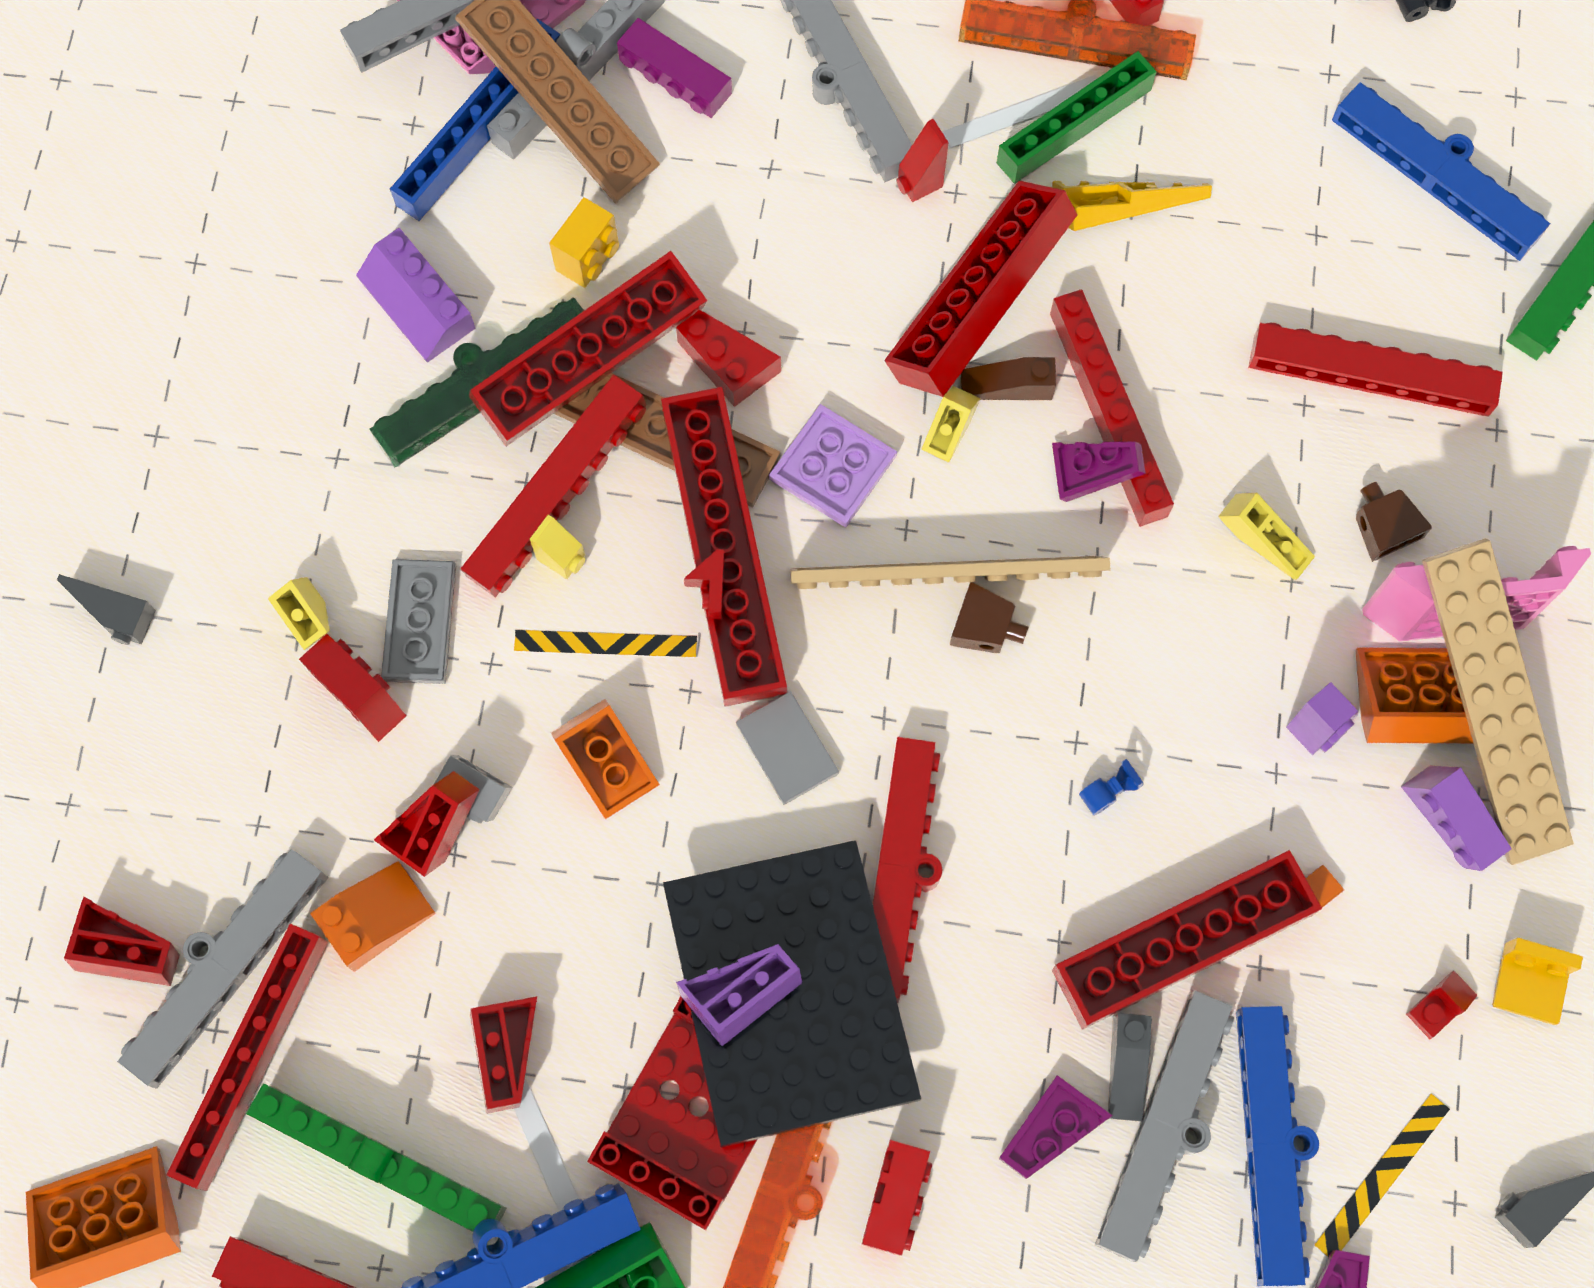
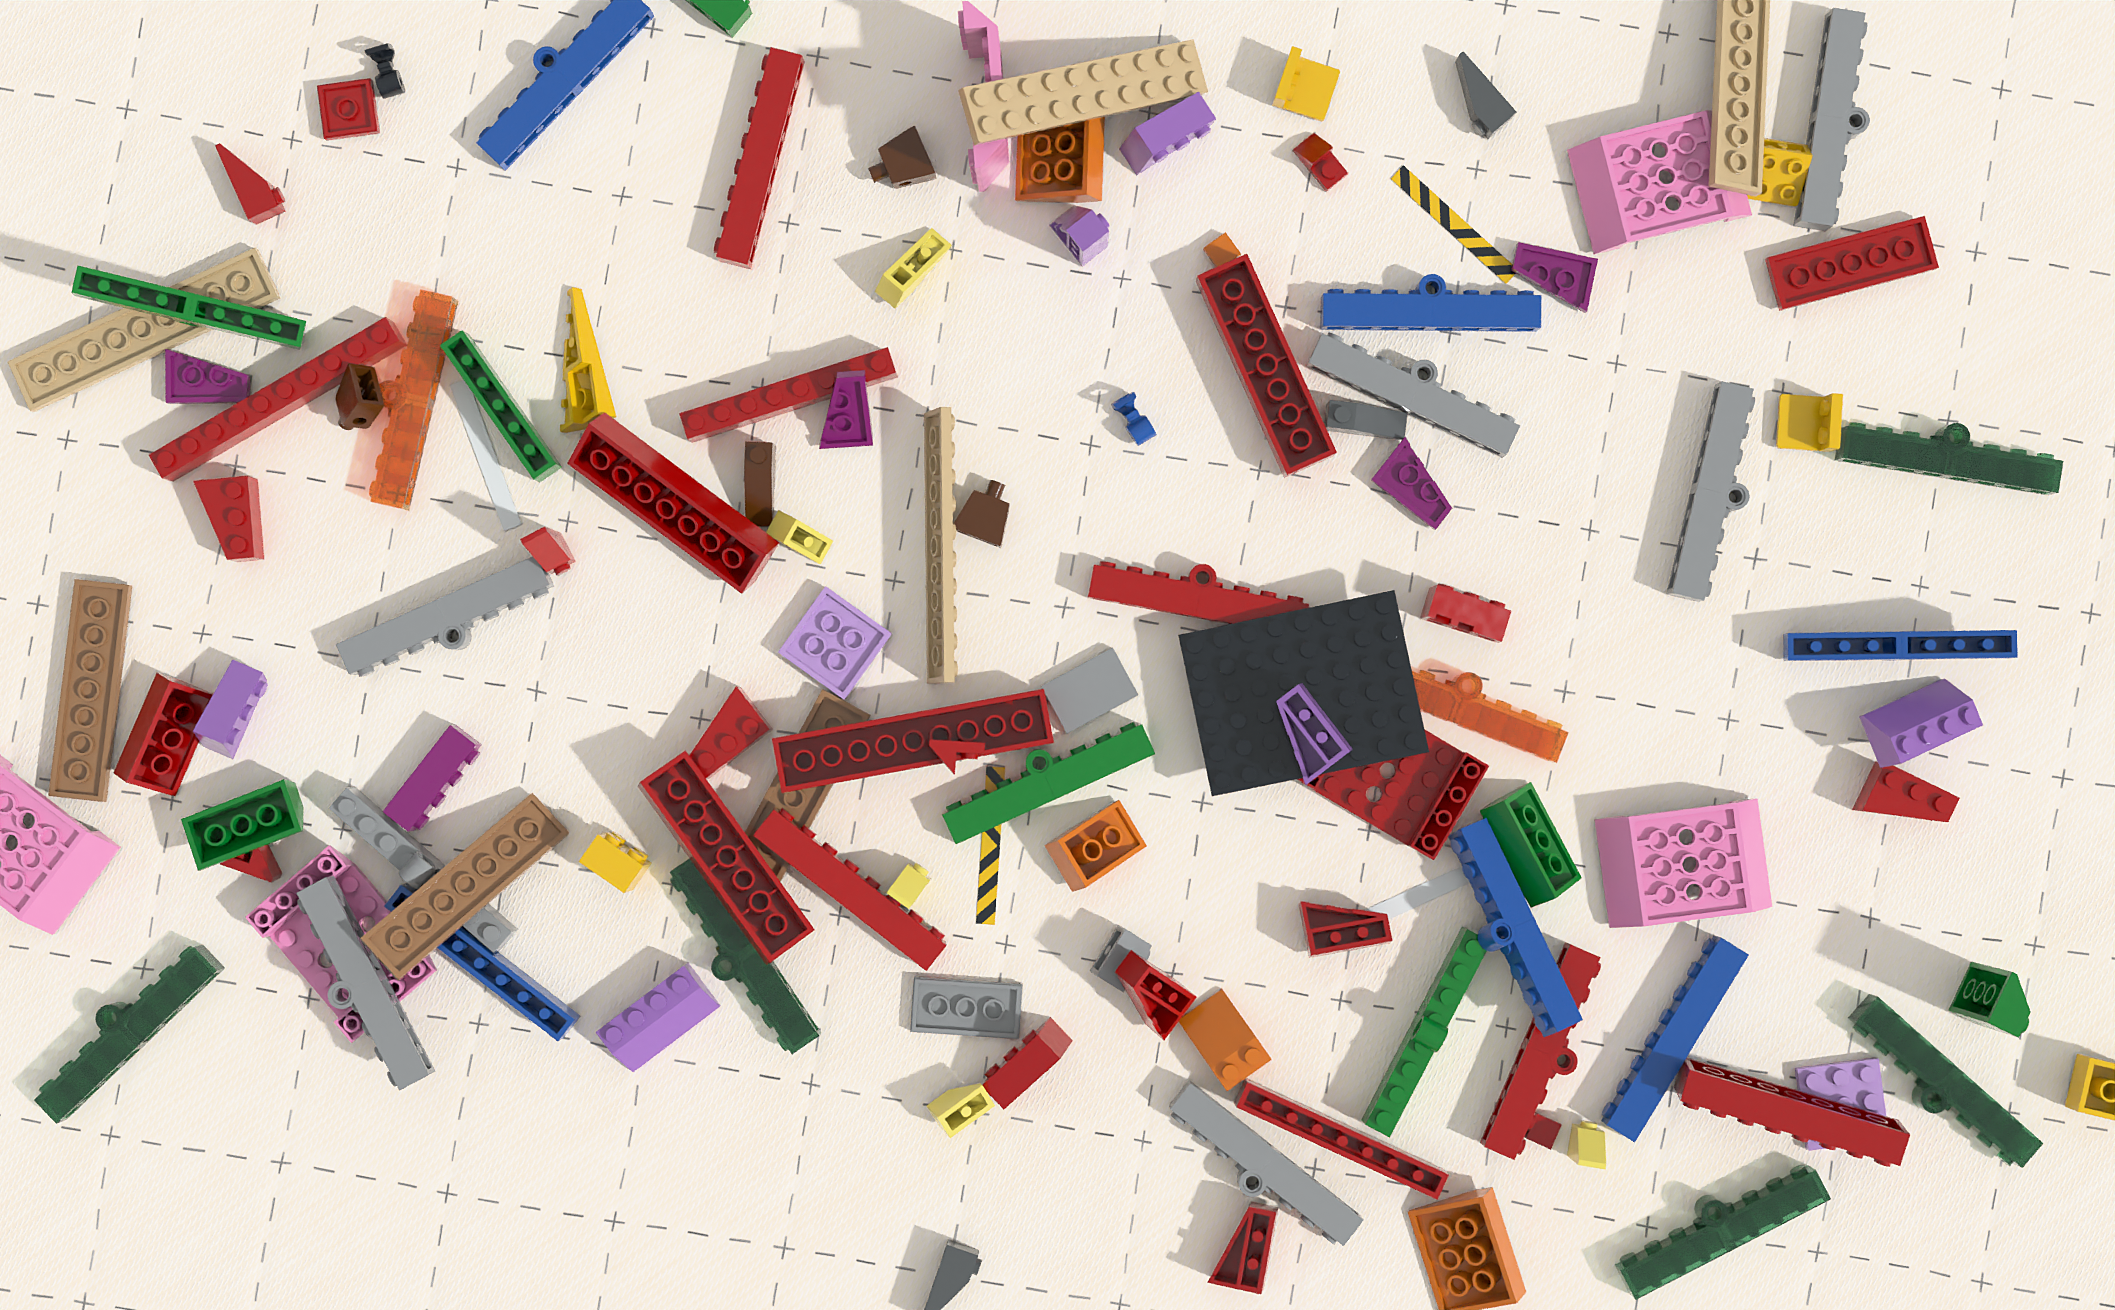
camera: 90 degrees left, 15 degrees up
(678, 703) = (1049, 783): none -> green hinge

